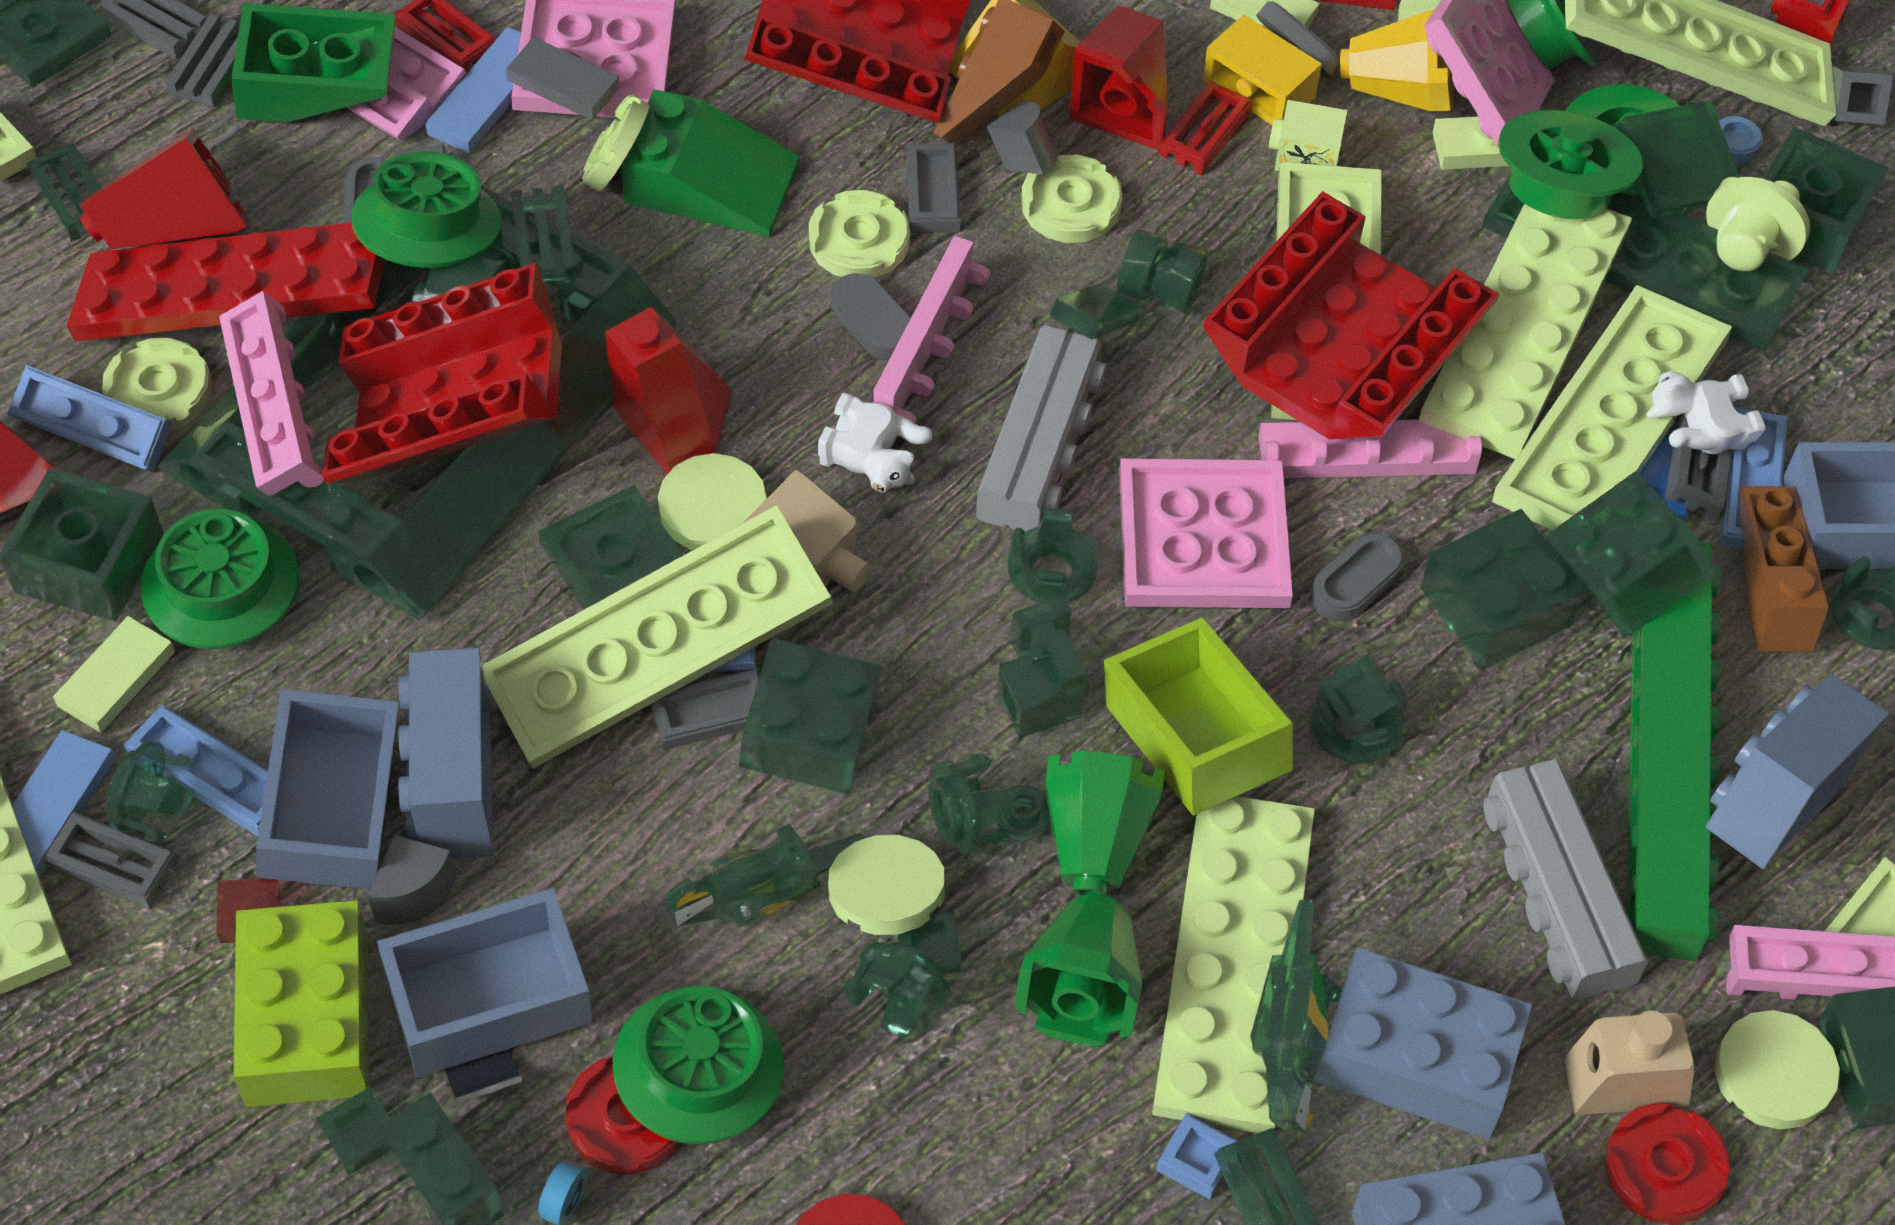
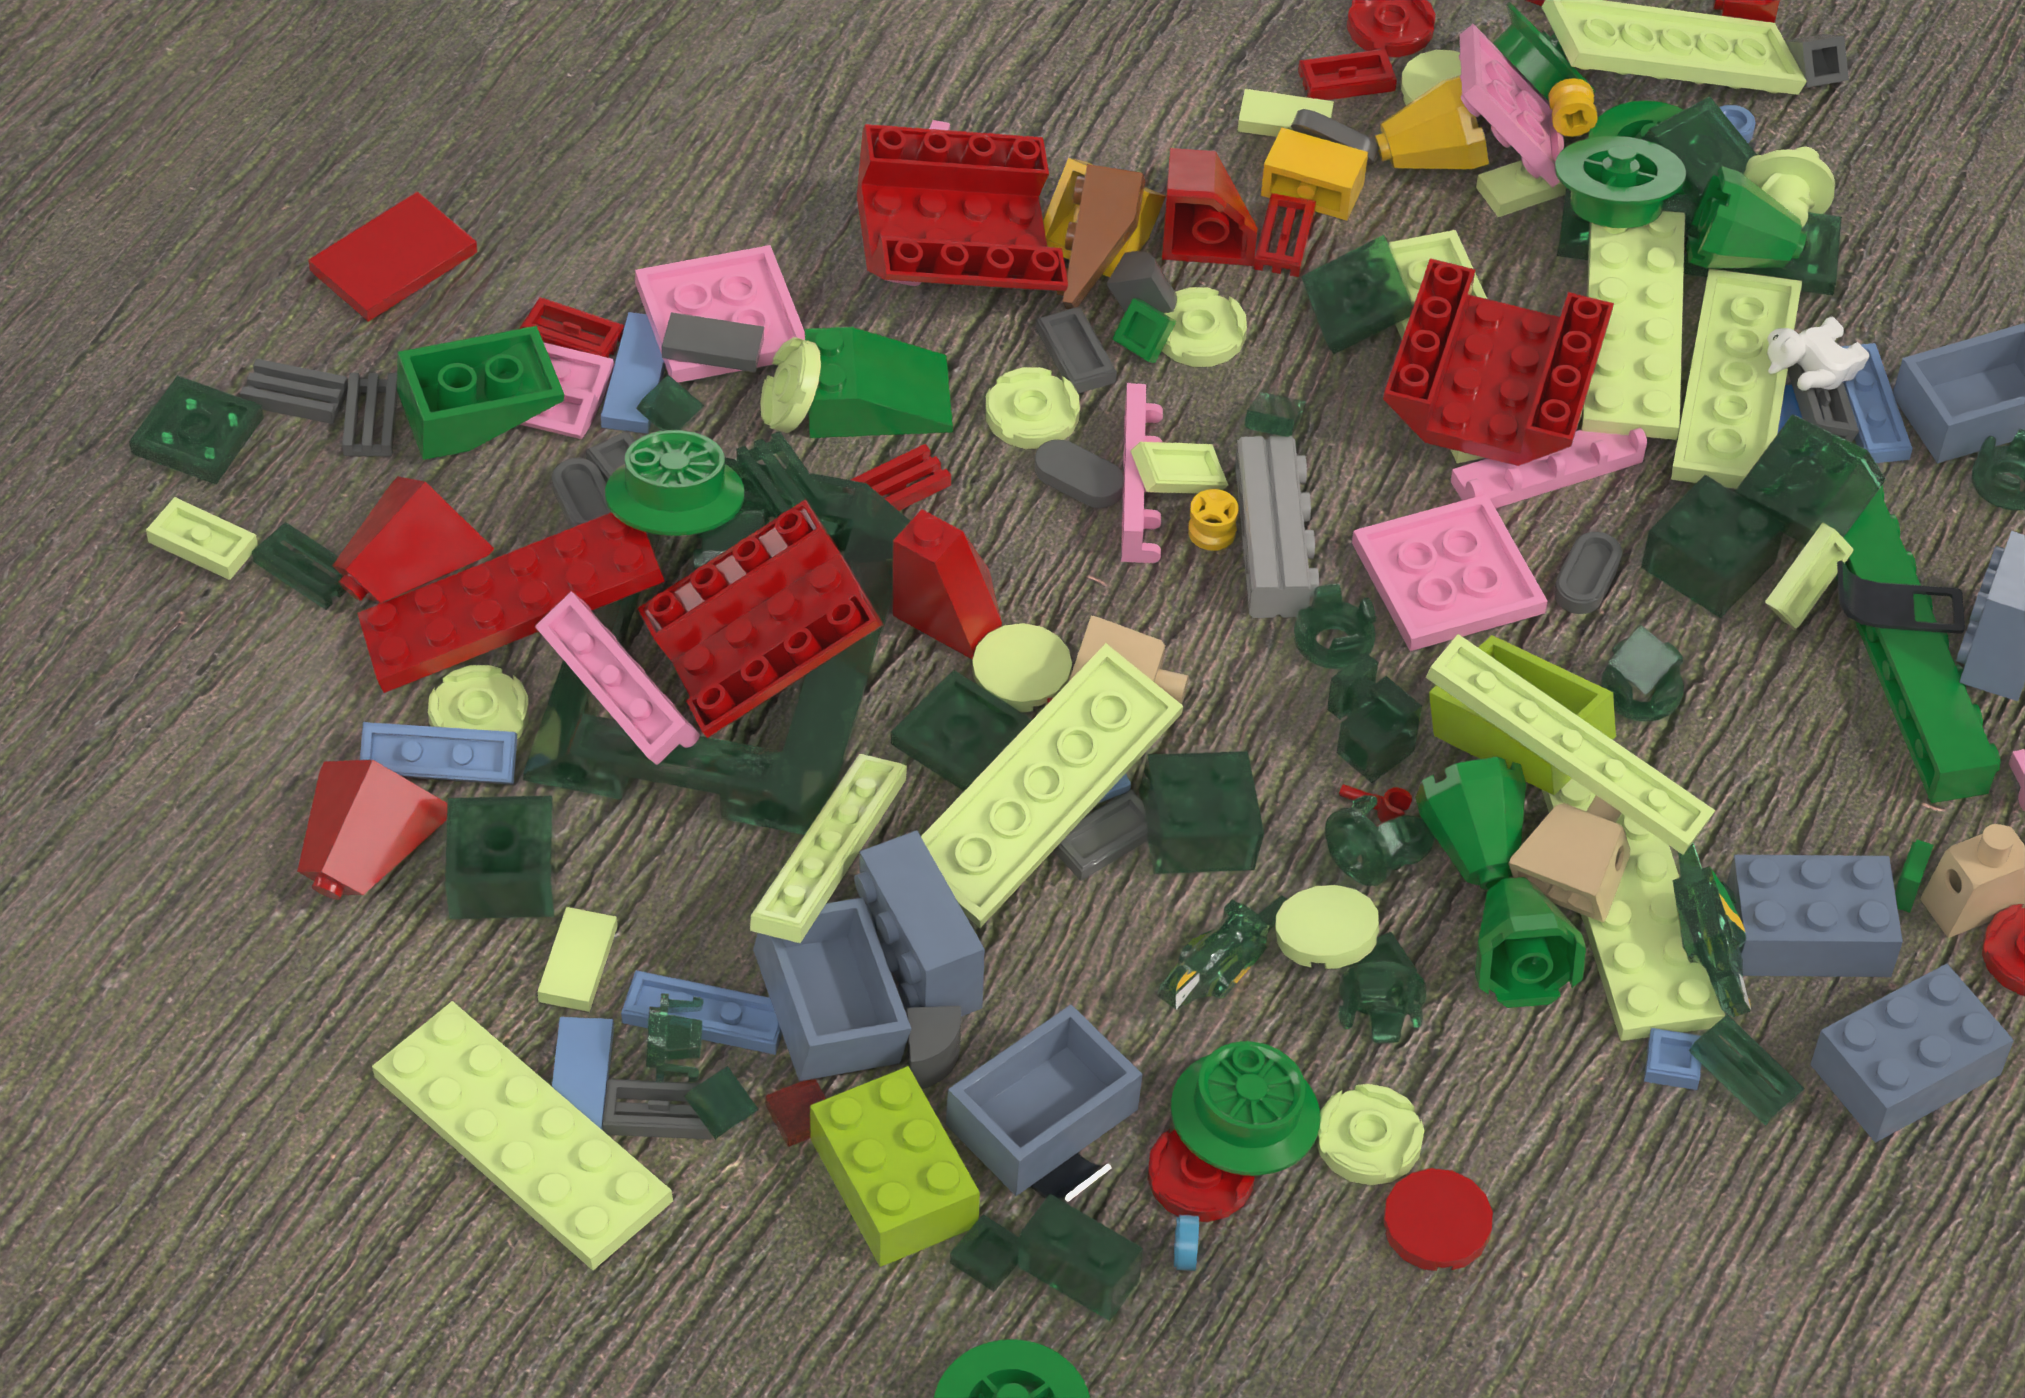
camera: 20 degrees left, 5 degrees down
(166, 875) = (721, 1102): none -> clear green tile
(219, 580) = (632, 852): green wheel -> none
(384, 643) = (828, 849): none -> yellowish green tile
(496, 132) = (670, 405): none -> clear green tile
(682, 268) = (897, 473): none -> red tile
(825, 1133) = (1370, 1134): none -> yellowish green tile
(865, 440) = (1125, 579): white animal -> none
(968, 339) = (1178, 467): none -> yellowish green tile
(989, 391) = (1213, 519): none -> yellow wheel
(1007, 186) = (1144, 330): none -> green tile
(1011, 761) = (1386, 804): none -> red hand
(1162, 271) = (1313, 365): clear green wheel -> none
(1183, 893) = (1576, 857): none -> tan torso
(1212, 770) = (1570, 744): none -> yellowish green plate
(1245, 207) = (1358, 294): none -> clear green plate
(1308, 134) = (1381, 213): yellowish green brick -> none
(1559, 1031) = (1912, 874): none -> green tile
(1560, 74) = (1572, 107): none -> yellow wheel
(1564, 881) = (1864, 758): light grey brick -> none
(1589, 654) = (1809, 576): none -> yellowish green tile
(1663, 713) = (1893, 604): none -> black piece
(1686, 250) = (1742, 226): none -> green cone
(1780, 571) = (1928, 469): dark orange slope -> none
(1832, 187) = (1841, 140): clear green brick -> none

